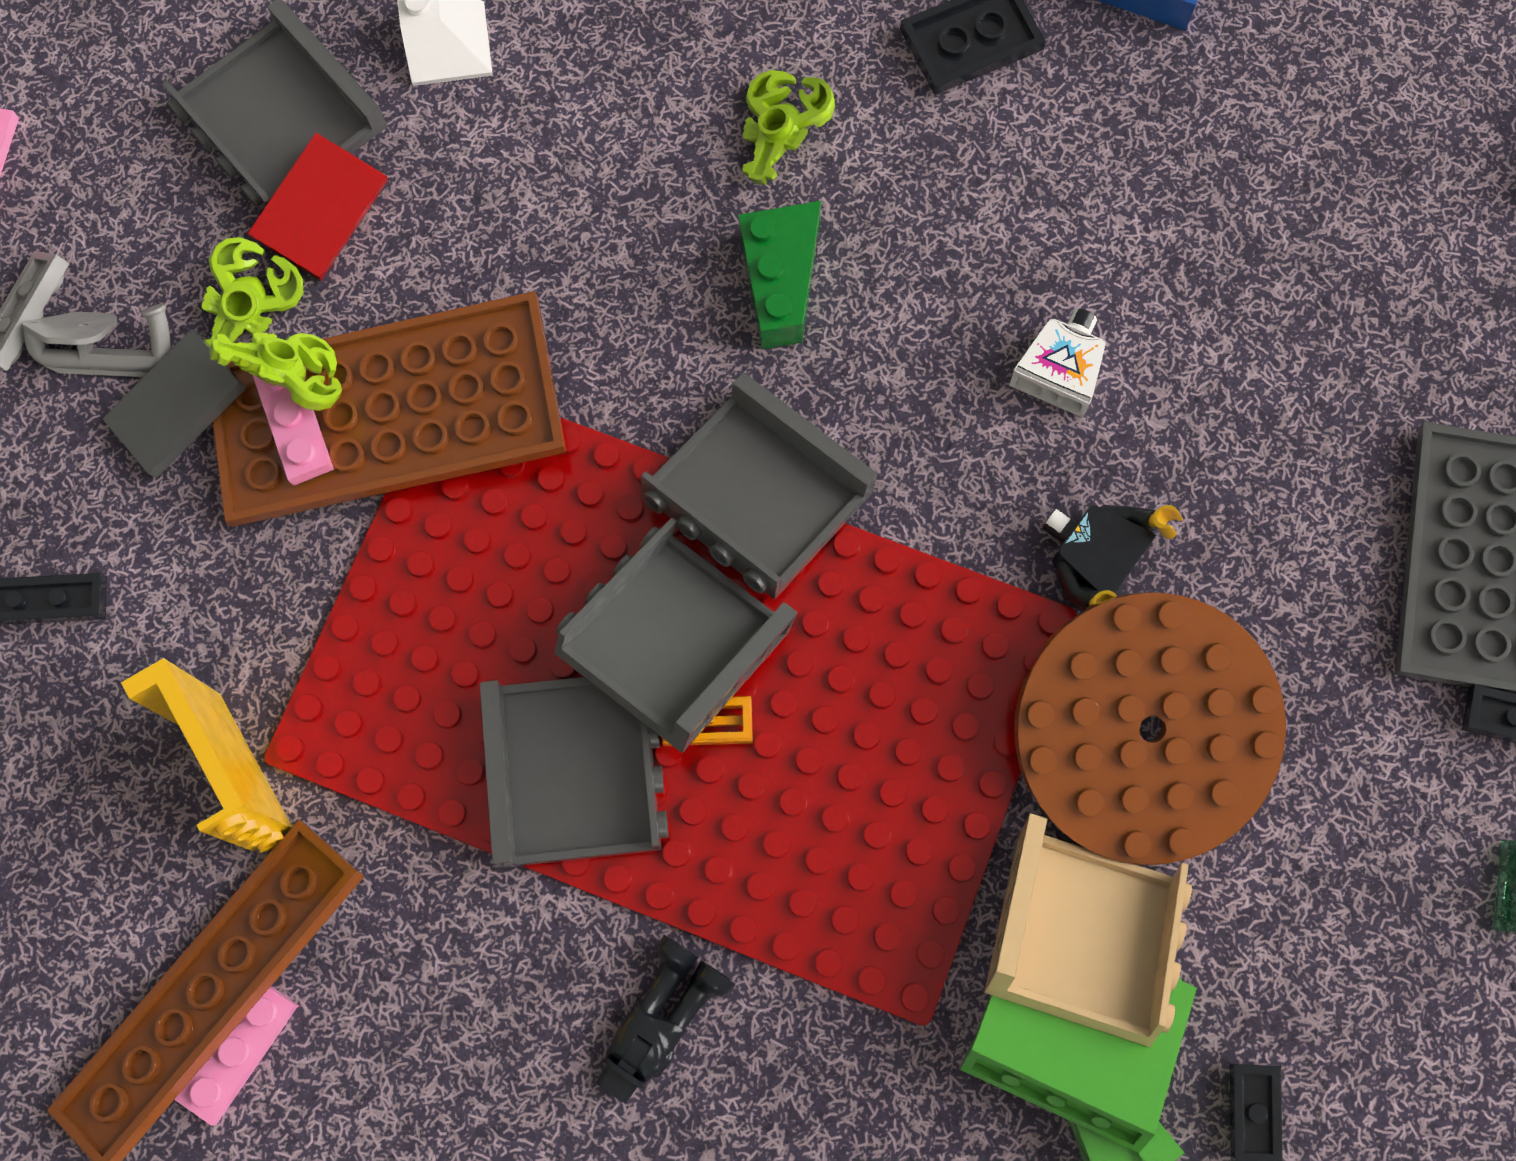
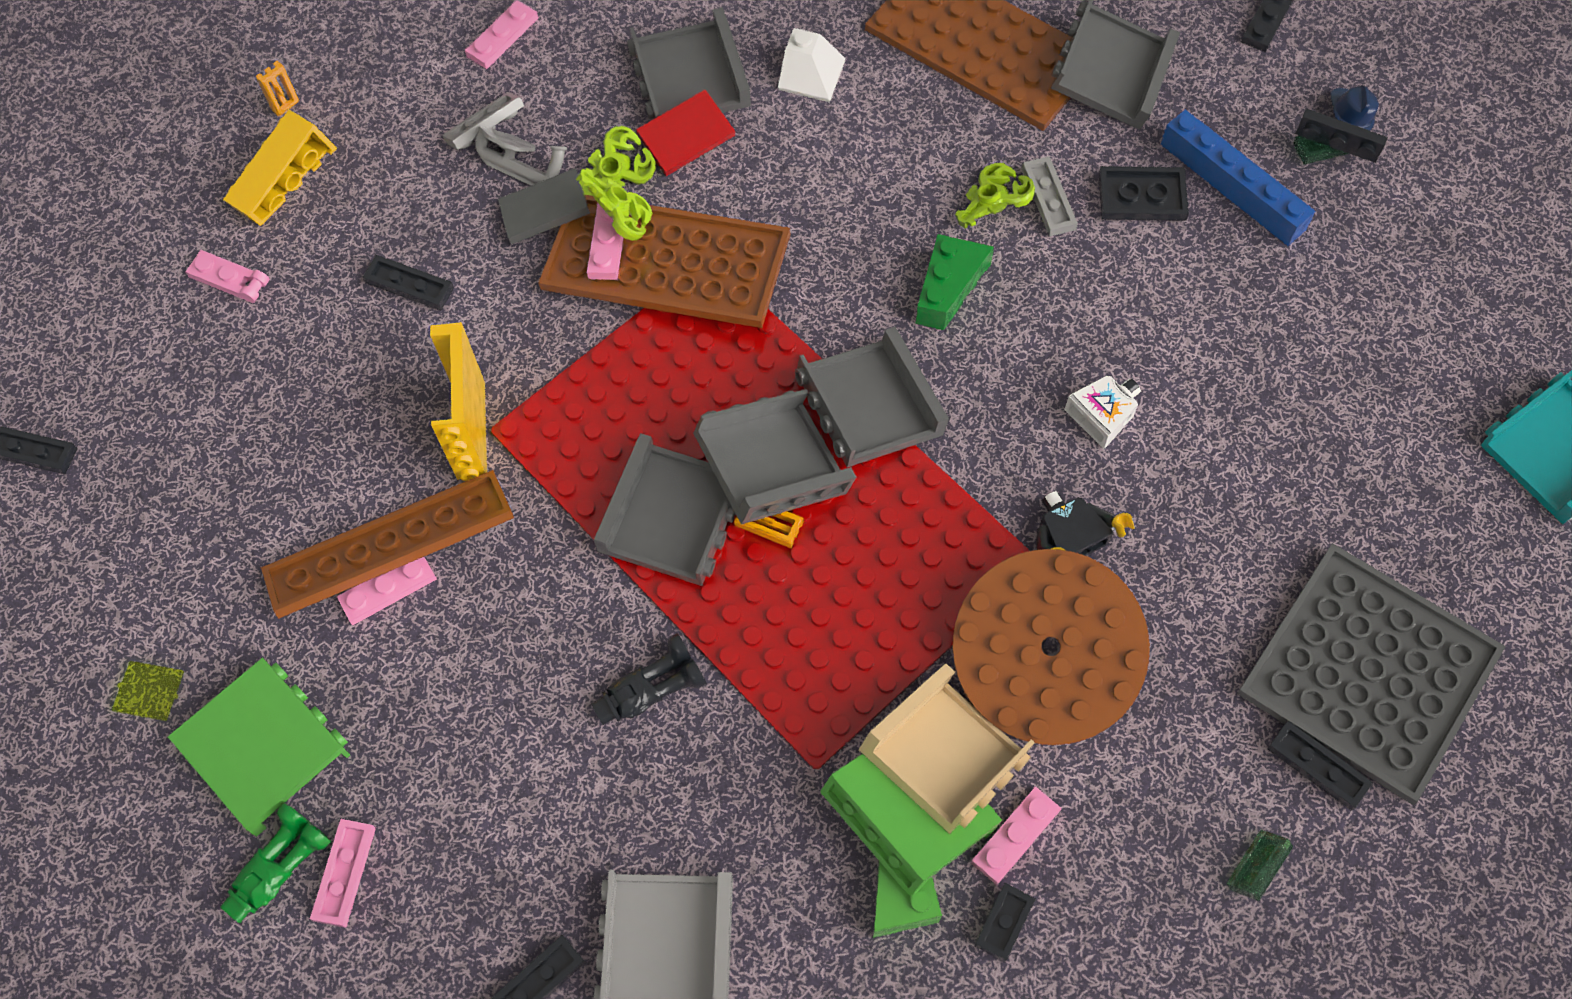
camera: 25 degrees right, 10 degrees down
(854, 91) = (1050, 196): none -> light grey plate
(1219, 985) = (1016, 835): none -> bright pink plate

